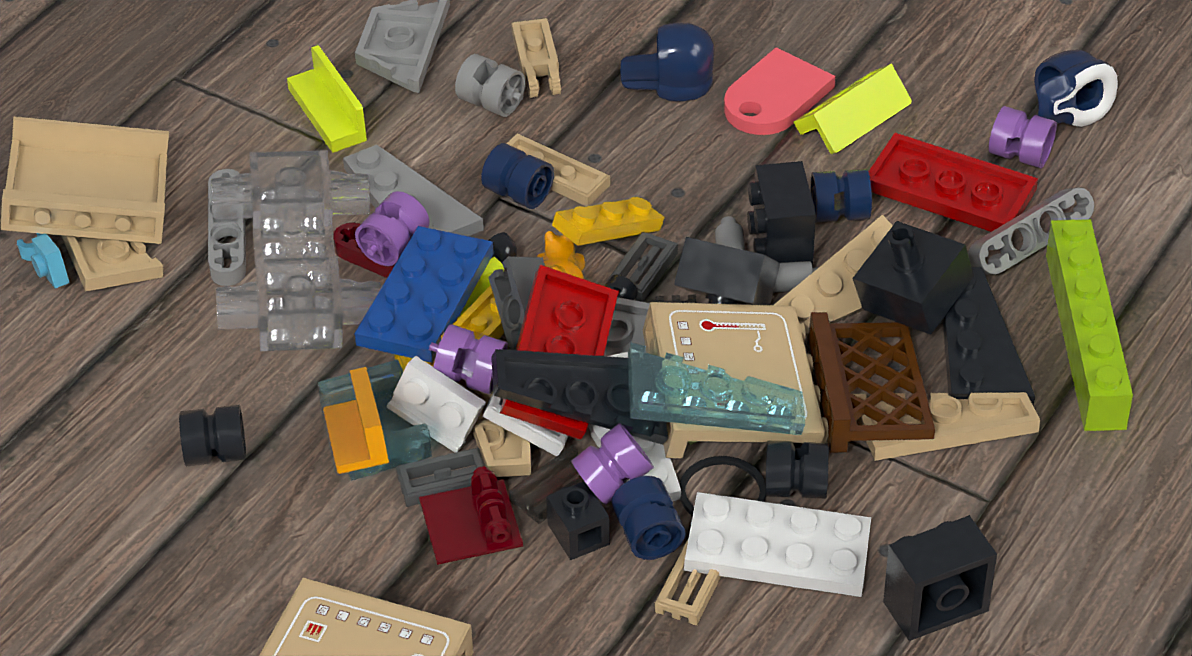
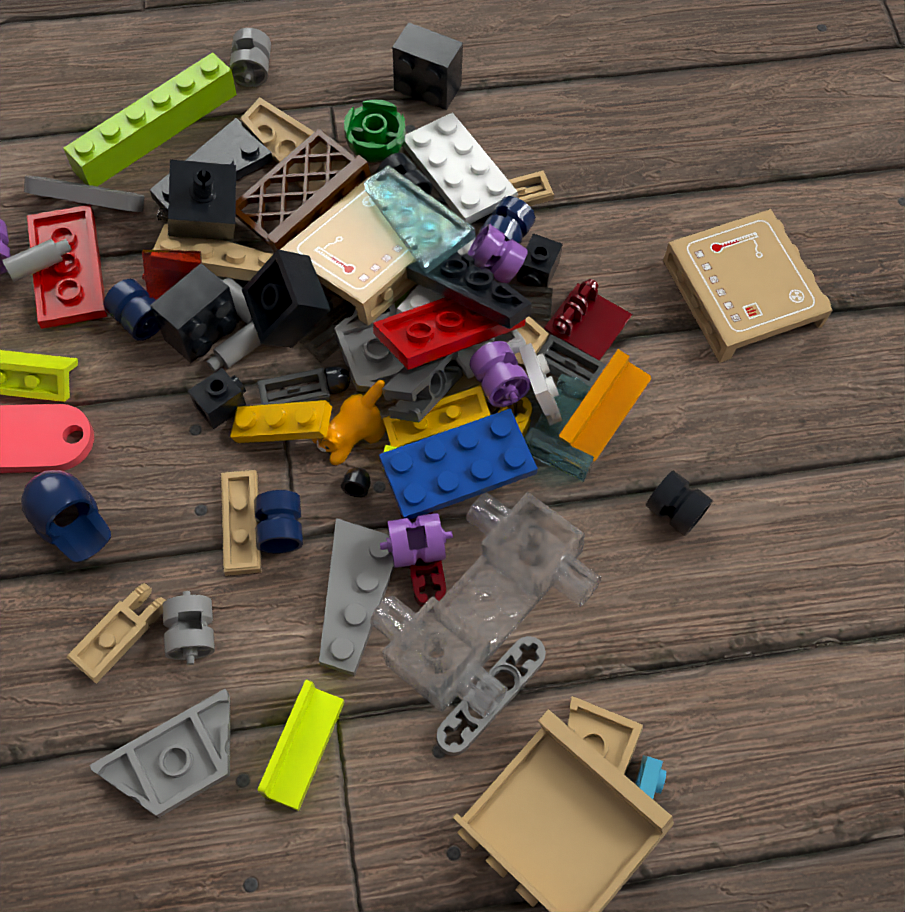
camera: 135 degrees left, 20 degrees up
(684, 204) = (218, 397): none -> black brick
(851, 234) = (167, 268): none -> clear red piece
(883, 471) = (374, 130): none -> green cylinder
(964, 149) = (36, 258): none -> light grey cylinder
(1121, 450) = (250, 57): none -> light grey wheel

